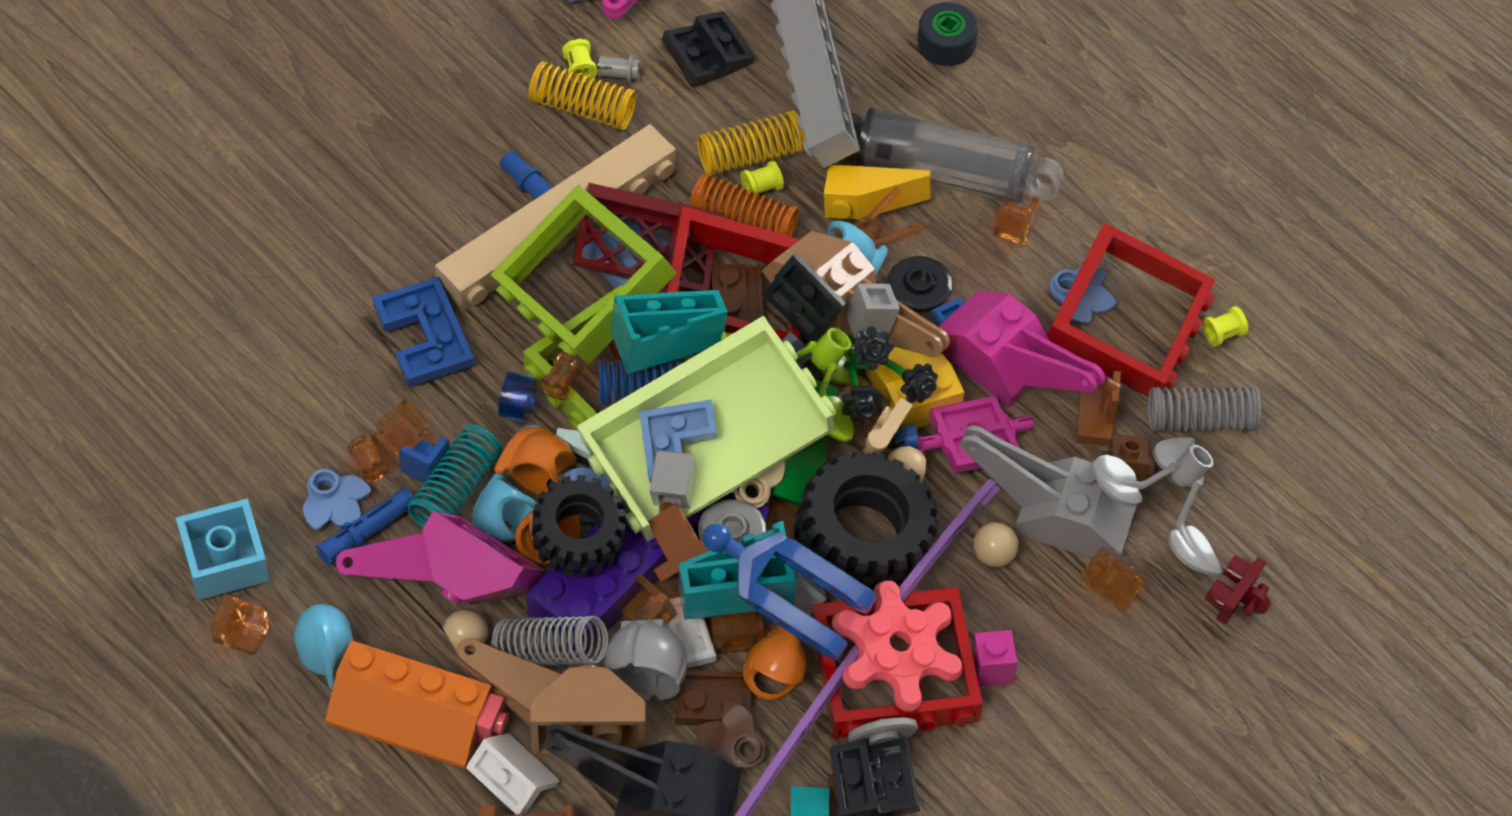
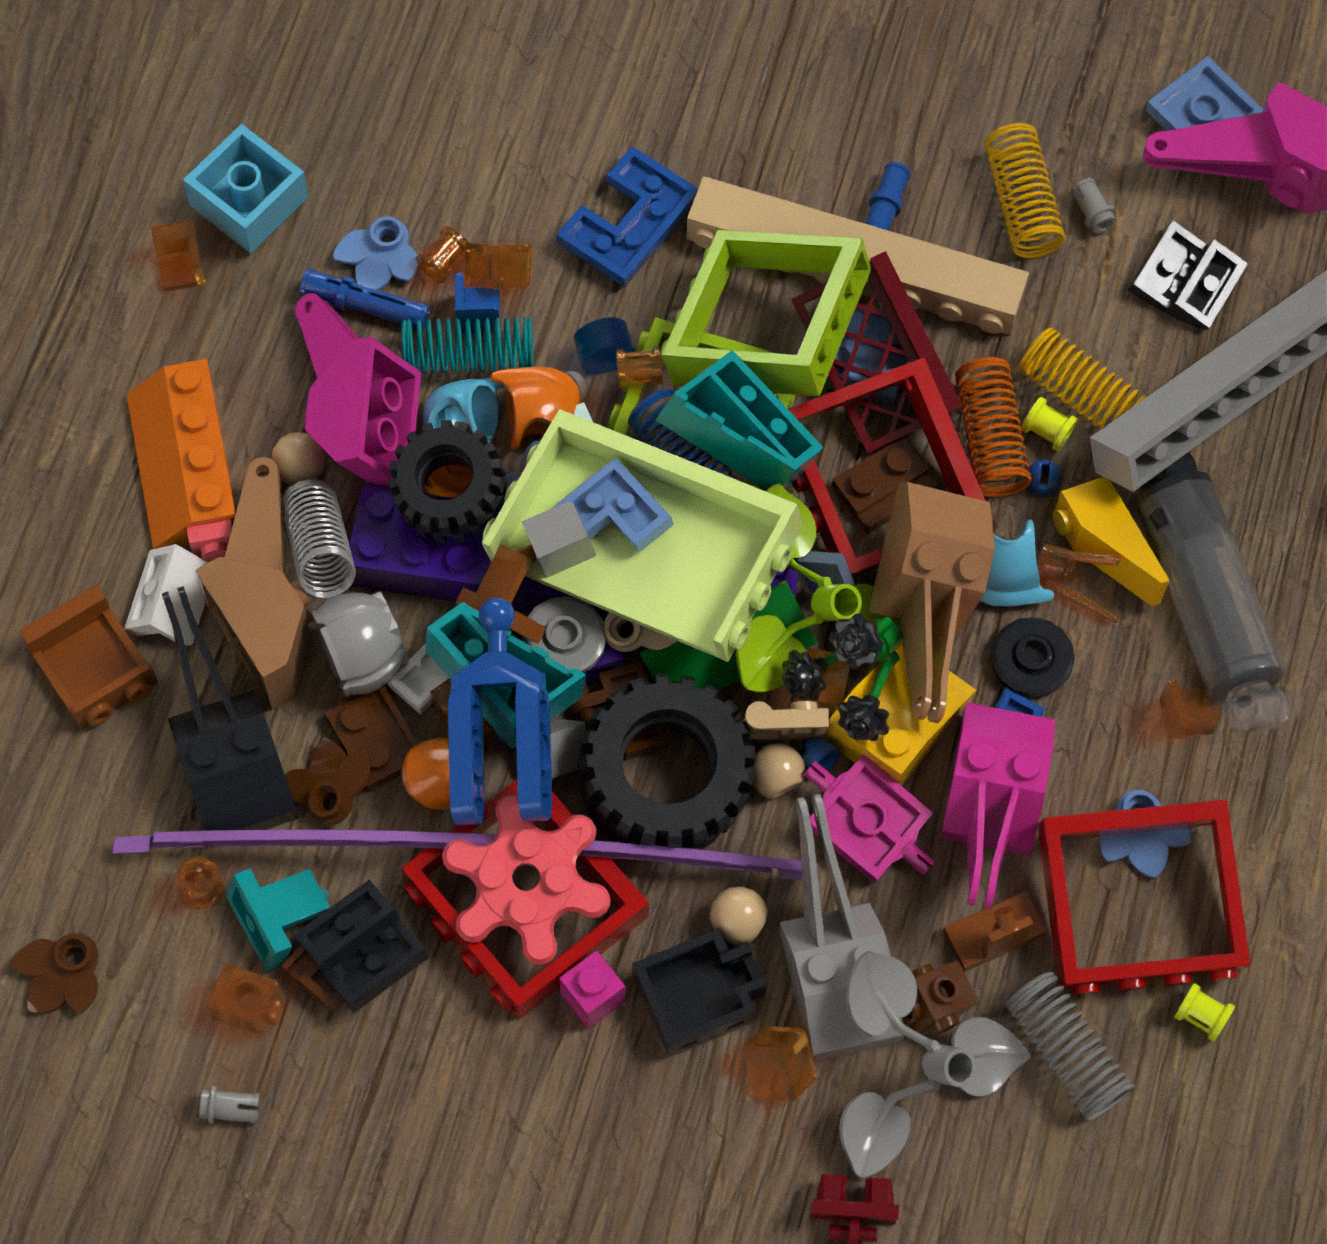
camera: 60 degrees right, 10 degrees up
(322, 639) = (204, 331): medium azure piece -> none
(577, 54) = (1072, 163): neon yellow bush -> none
(649, 604) = (424, 609): clear orange panel -> none
(798, 199) = (1054, 478): none -> blue hinge
(804, 298) = (883, 540): black slope -> none
(872, 306) = (916, 618): light grey panel -> none
(883, 730) = (417, 924): light grey wheel -> none
(1034, 597) = (699, 990): none -> black piece

